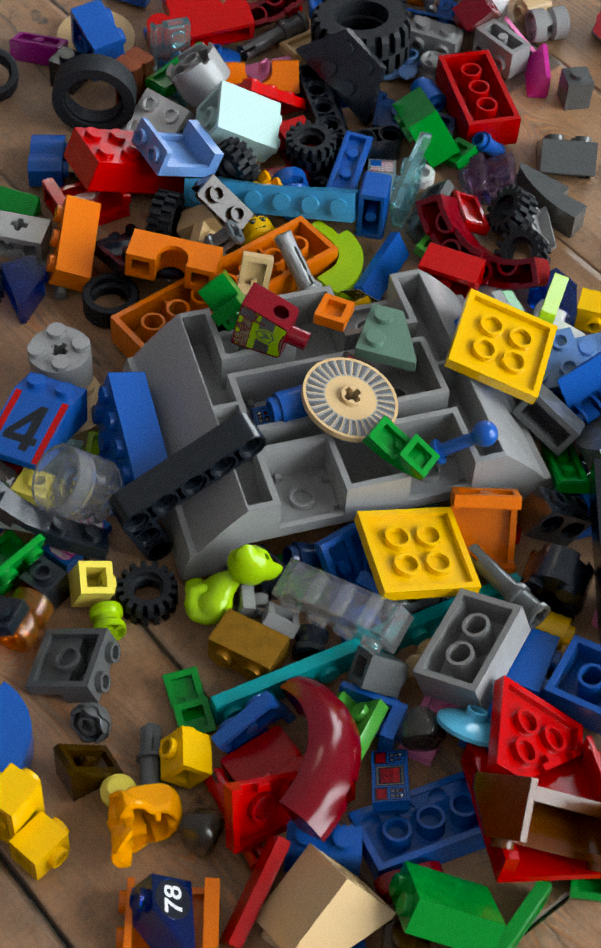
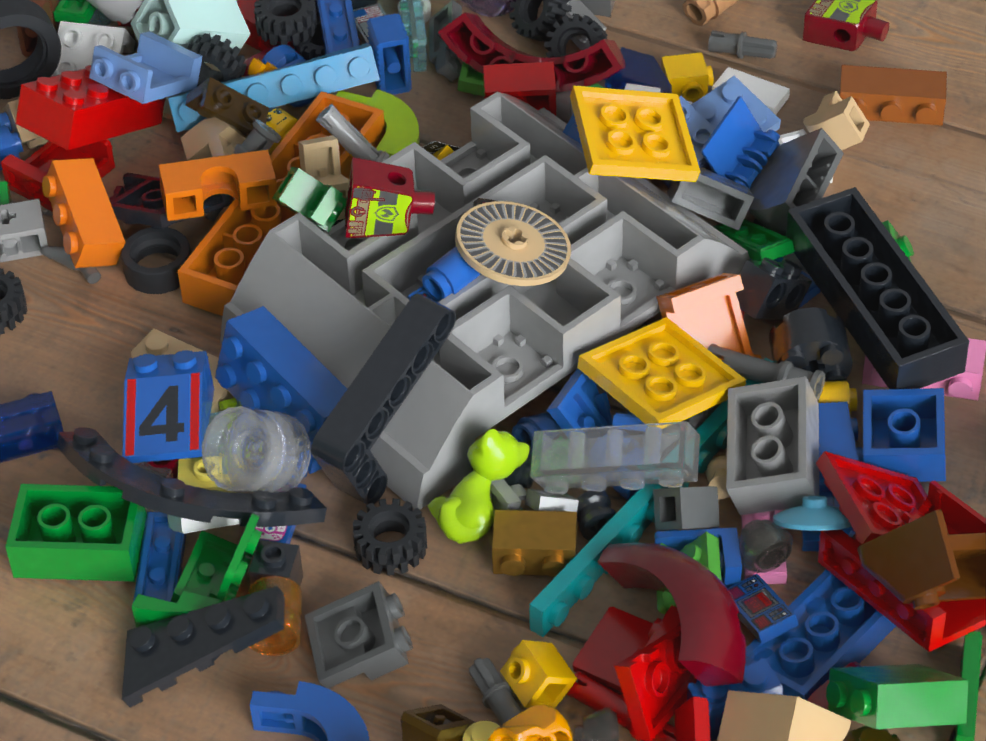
camera: 20 degrees left, 5 degrees down
(24, 285) = (47, 280): clear blue slope -> none
(62, 355) = (148, 327): light grey brick -> none
(91, 583) = (328, 548): light yellow brick -> none
(91, 722) = (411, 696): dark grey plate -> none
(109, 615) = (364, 572): lime wheel -> none
(165, 212) = (164, 141): black tyre -> none
(188, 700) = (498, 623): green slope -> none
(251, 722) = (590, 598): blue wing -> none
(334, 312) = (440, 165): orange plate -> none
(385, 262) = (435, 111): blue tile -> none
(386, 339) = (511, 171): sand green wing -> none
(405, 453) = (604, 275): green slope -> none
(471, 212) = (499, 26): red tile -> none
(483, 434) = (671, 224): blue pin -> none
(553, 298) = (642, 71): beam -> none

